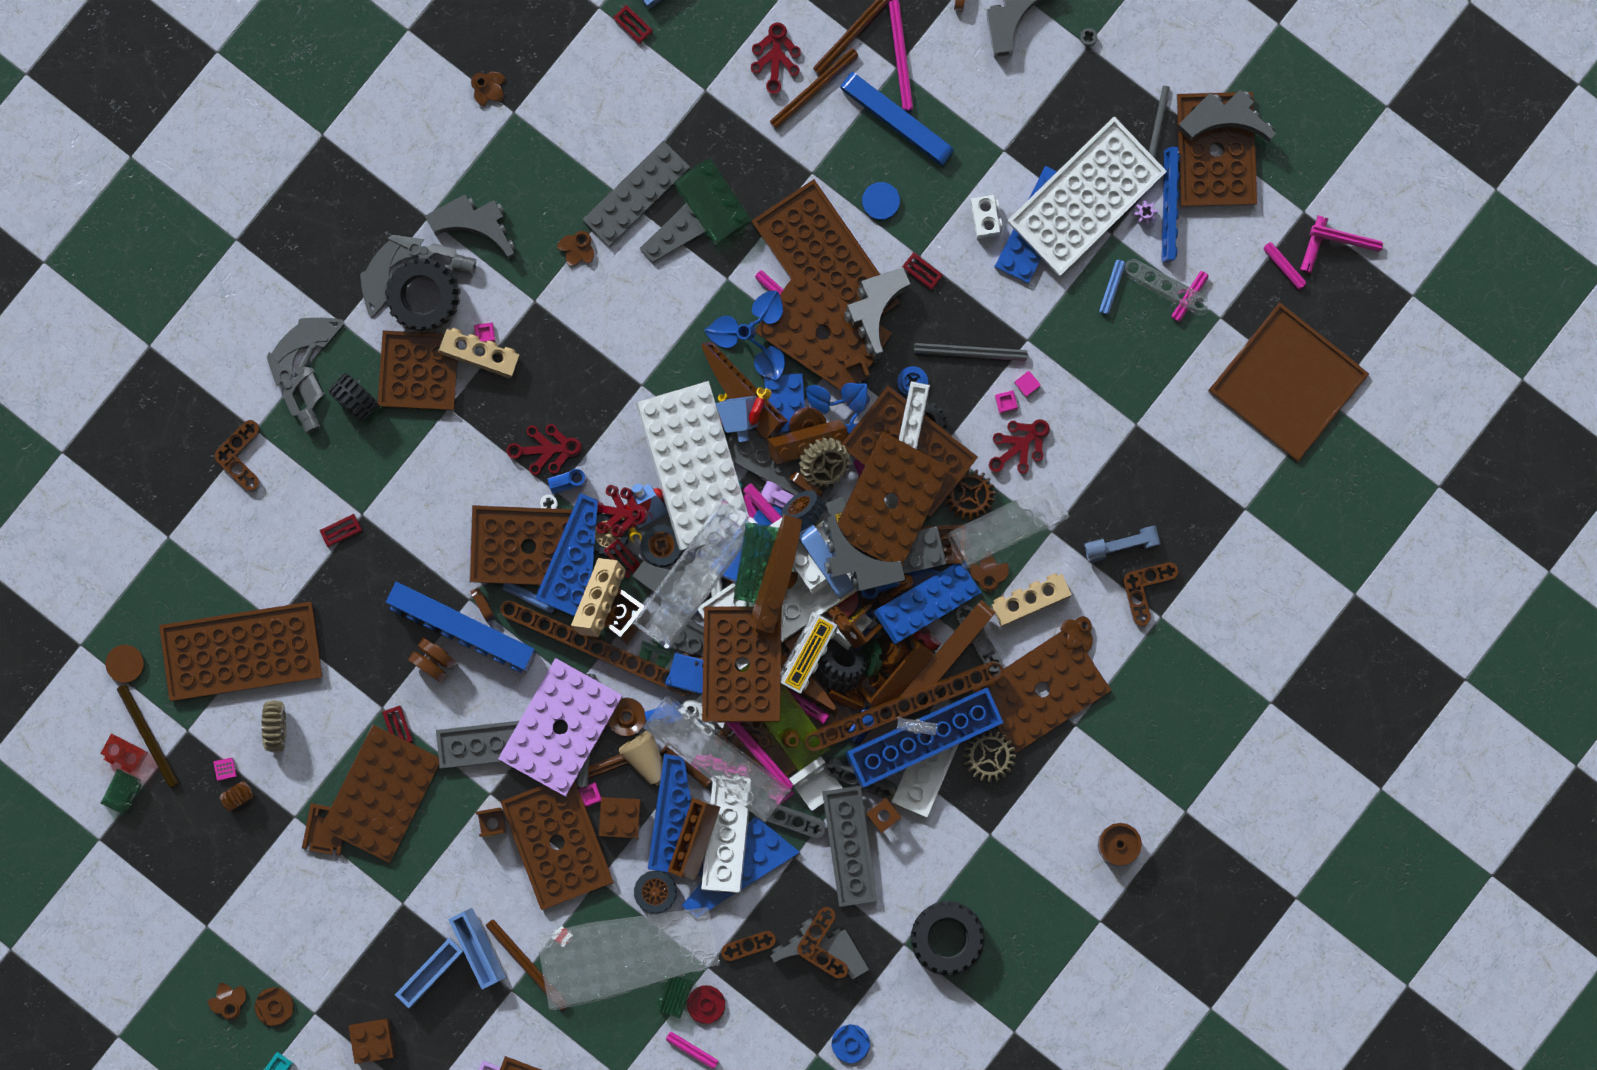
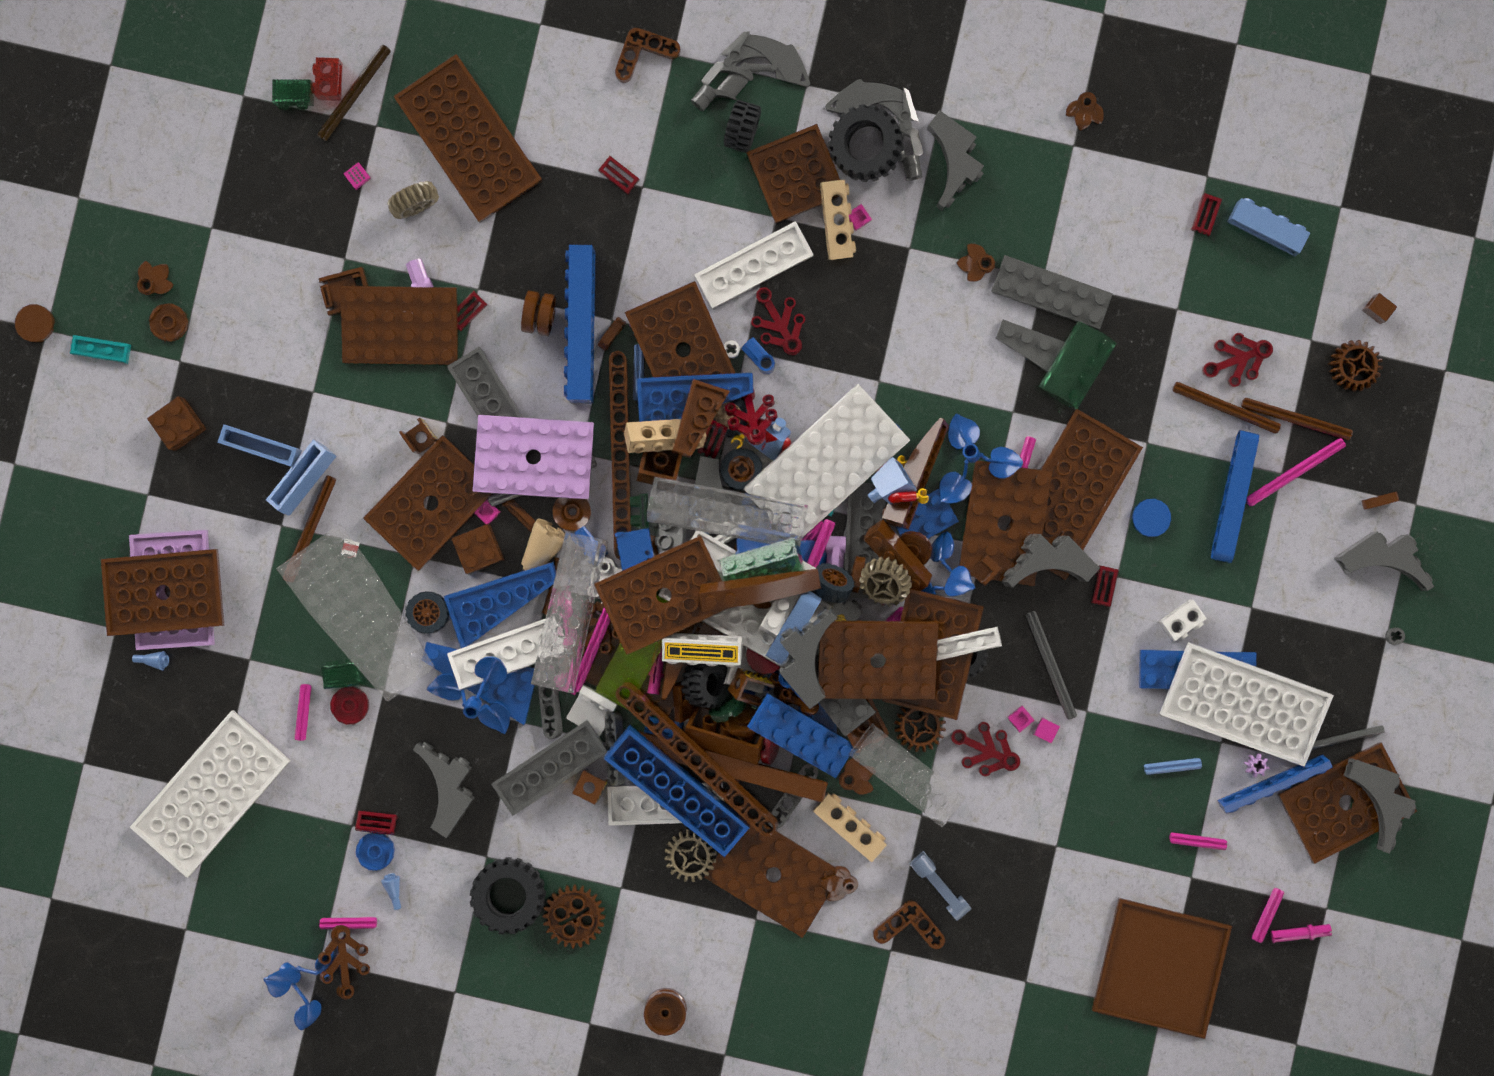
camera: 65 degrees right, 5 degrees up
(124, 663) = (408, 41): reddish brown tile -> none
(236, 796) = (335, 197): reddish brown gear -> none
(342, 755) = (418, 274): none -> lavender piece
(482, 447) = (753, 265): none -> white plate
(593, 557) = (699, 411): none -> reddish brown wing
(694, 839) = (487, 626): reddish brown brick -> none
(736, 955) = (412, 705): reddish brown beam -> none
(778, 876) = (492, 715): none -> blue plant
(787, 735) = (621, 668): reddish brown cone -> none
(816, 950) = (440, 783): reddish brown beam -> none
(830, 1034) = (392, 825): none -> dark red tile
(840, 618) = (747, 665): reddish brown axle -> none
(889, 1042) = (392, 886): none -> medium blue cone
(913, 372) = (1007, 622): blue gear -> none
(917, 726) = (681, 781): clear pin -> none
(1013, 887) = (582, 930): none -> reddish brown gear
(1162, 279) = (1202, 809): clear beam -> none
(1346, 238) = (1321, 961): dark pink axle -> none

